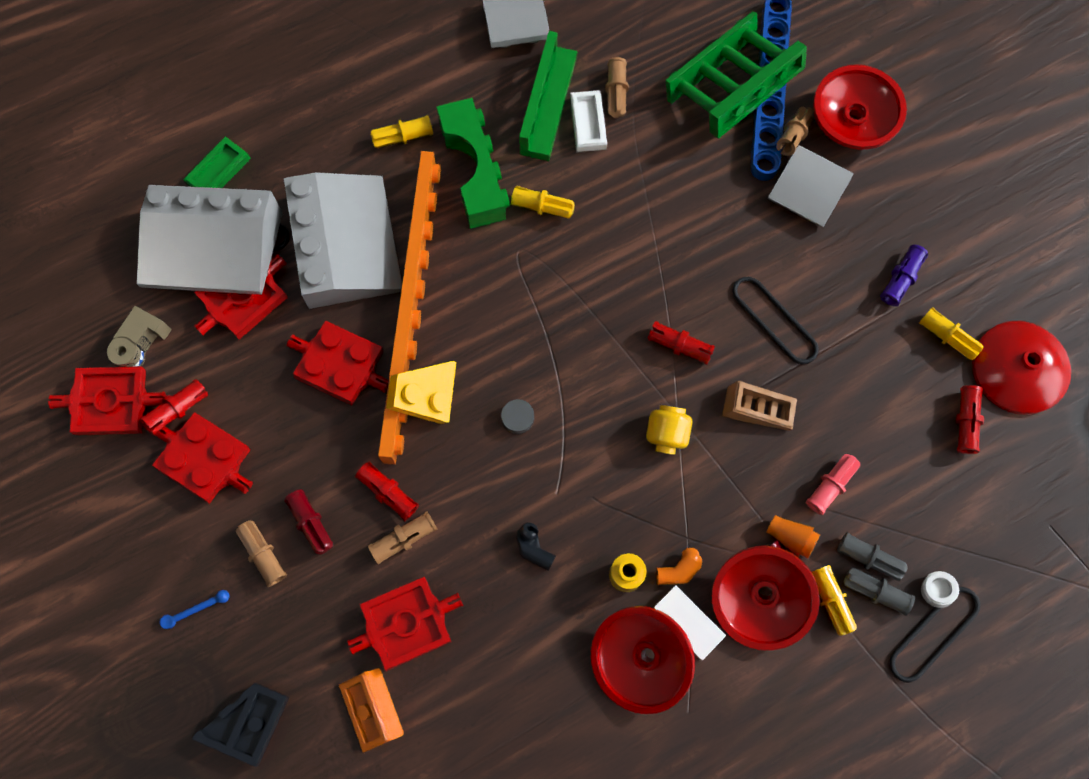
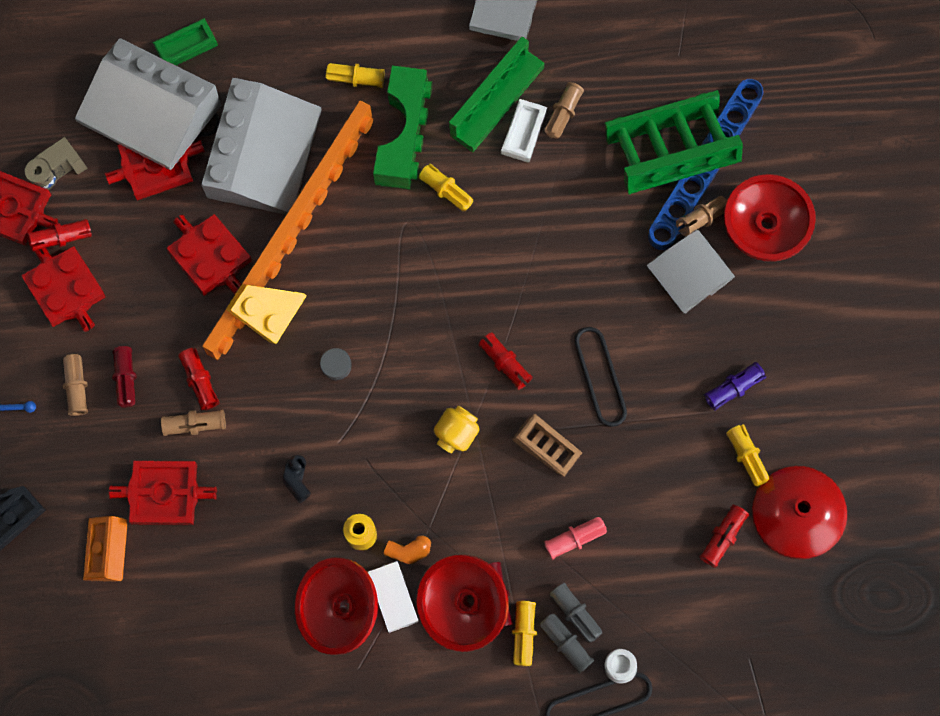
camera: 30 degrees right, 0 degrees up
(794, 536) = (518, 566): orange cone -> none

